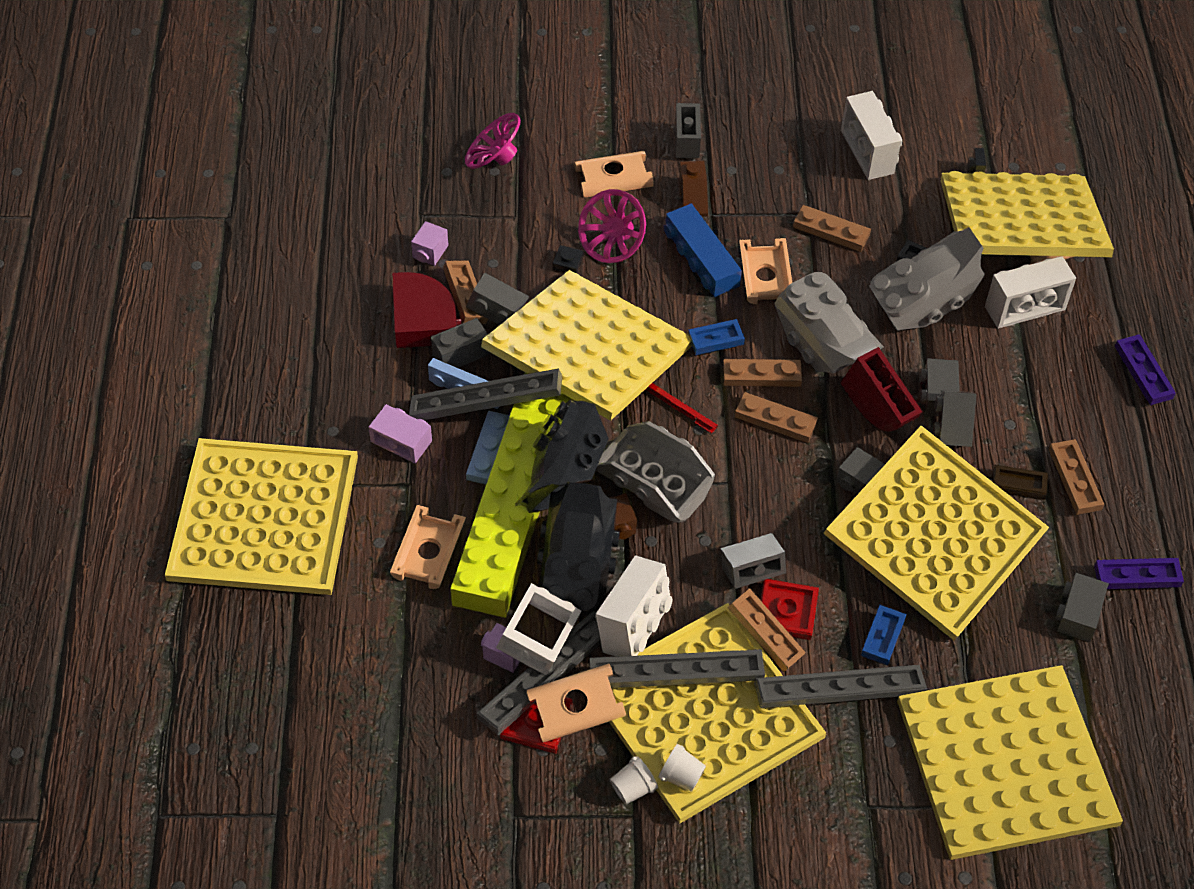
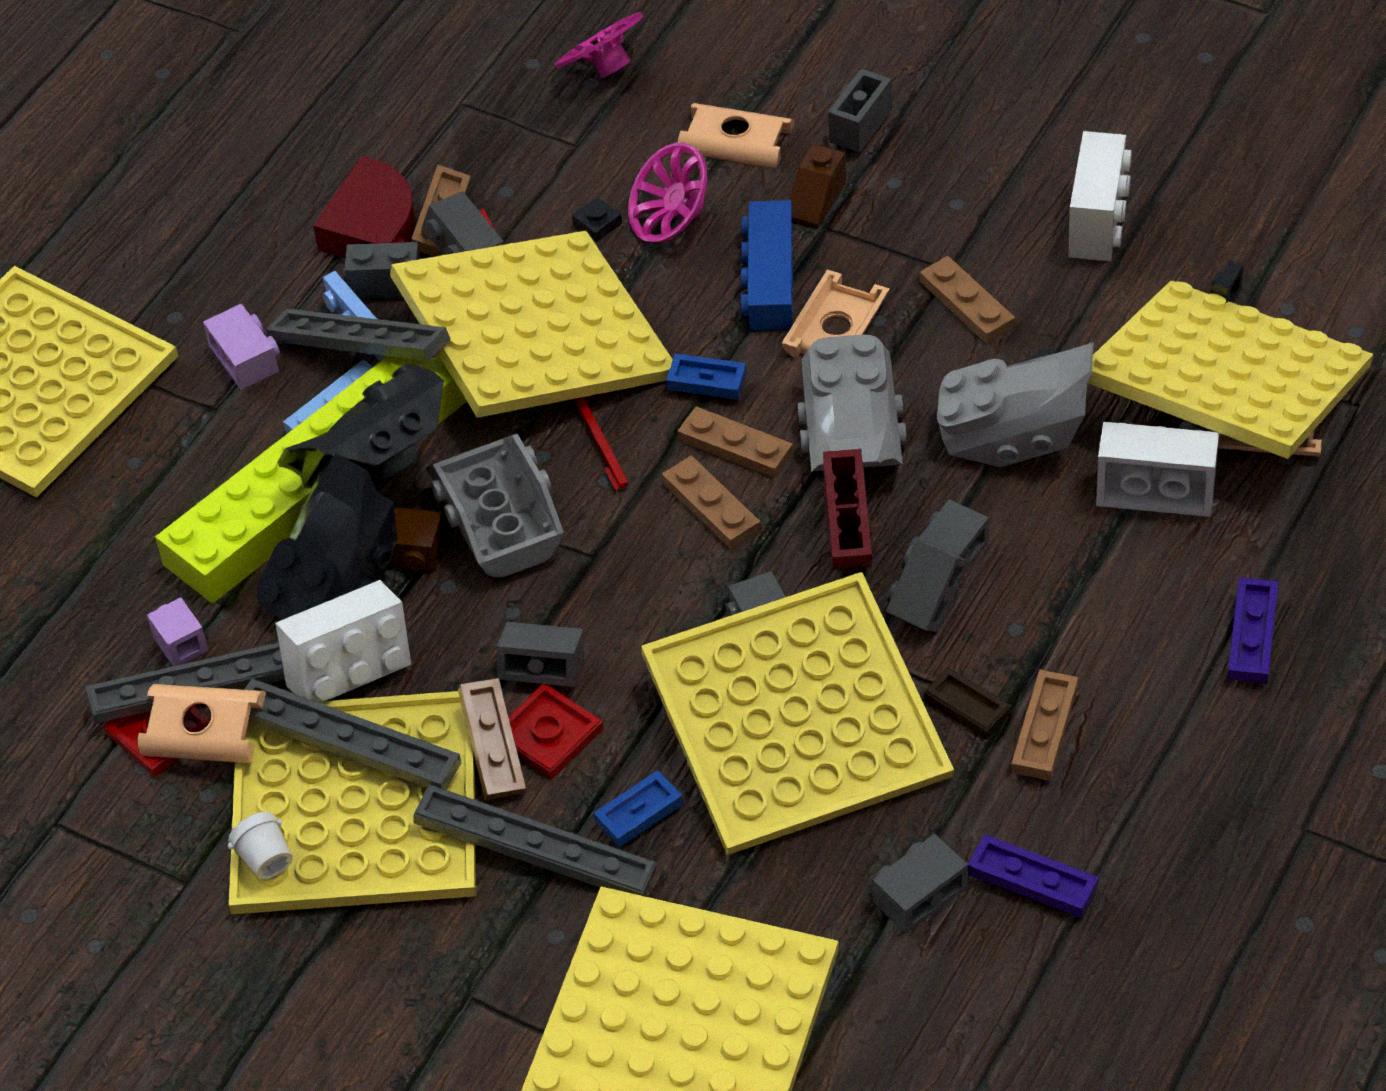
camera: 35 degrees right, 5 degrees down
(422, 530) = (186, 465): light nougat piece -> none
(429, 243) = (439, 139): lavender brick -> none
(525, 648) = (185, 641): white window -> none
(633, 781) = (206, 840): white piece -> none

